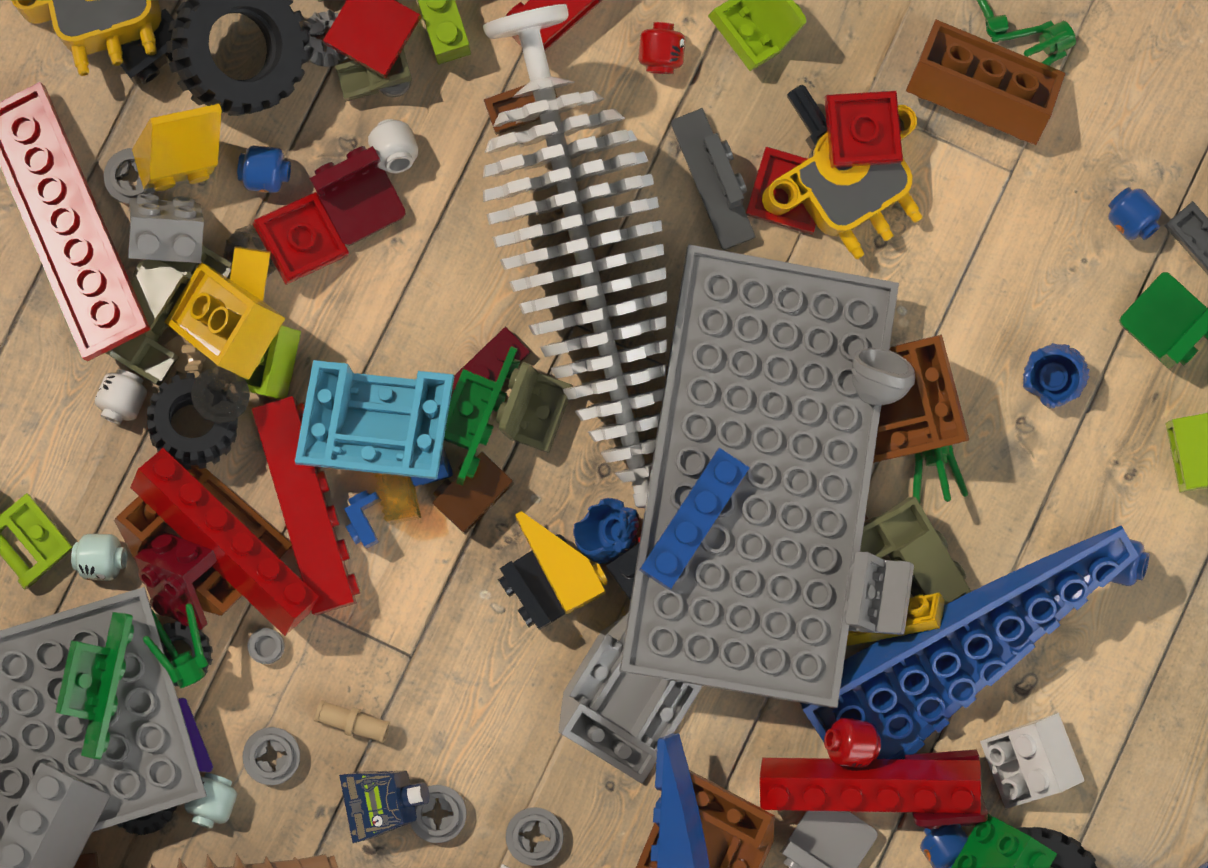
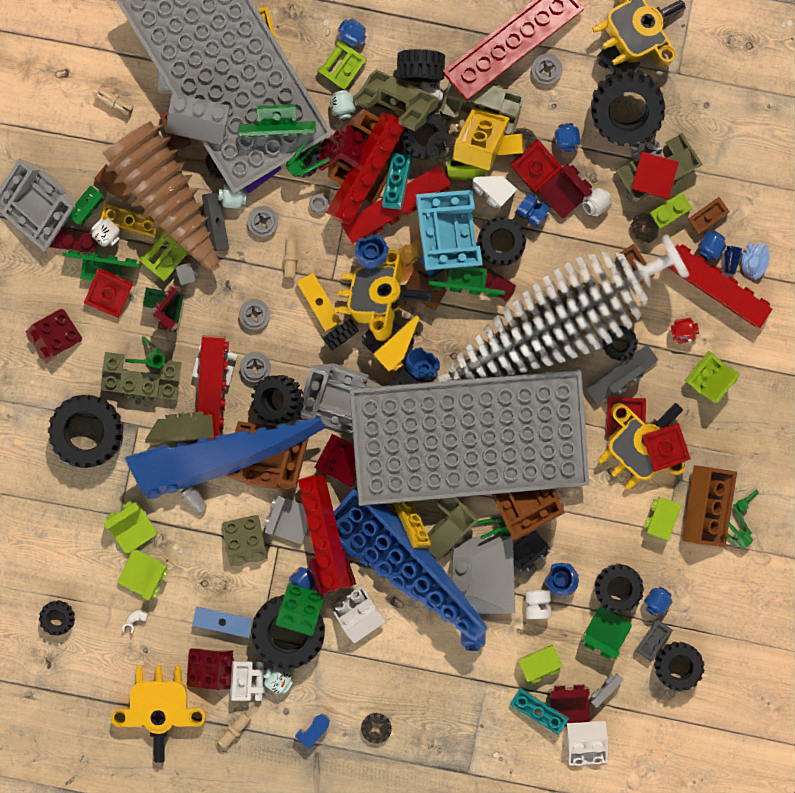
camera: 70 degrees right, 5 degrees up
(63, 397) = (420, 65): none -> black tyre
(109, 450) = (399, 96): none -> olive bracket
(165, 229) = (522, 95): light grey bracket -> none
(178, 147) = (565, 91): yellow slope -> none
(249, 843) = (215, 221): none -> dark grey tile
(277, 497) = (395, 190): none -> teal tile
(322, 320) = (495, 189): none -> white slope
(360, 528) = (391, 236): blue bracket -> none
(378, 263) = (532, 210): none -> blue wheel
(378, 569) = (371, 251): none -> blue hair
(380, 802) = (253, 283): dark blue torso -> none
(419, 301) = (511, 227): none -> black tyre
(423, 694) = (312, 291): none -> yellow tile
(458, 576) = (378, 294): none -> piece
(469, 62) = (651, 229): none -> clear smoke gear
(514, 664) = (340, 334): none -> black tyre
(533, 408) = (476, 311): olive bracket -> none
(597, 836) = (263, 399): none -> black tyre
(677, 166) = (628, 351): none -> black tyre
(694, 519) = (437, 408): blue plate -> none
(744, 725) = (338, 460): none -> dark red bracket
(852, 743) = (343, 518): red head -> none
(878, 594) = (422, 512): light grey bracket -> none
(881, 376) = (536, 487): light grey hat -> none
(987, 170) = (662, 518): none -> lime brick
(992, 423) = (529, 551): none -> black bracket
(1012, 508) = (486, 573): none -> light grey slope
(1092, 429) = (538, 604): none -> white wheel
(1120, 261) = (630, 600): none -> black tyre

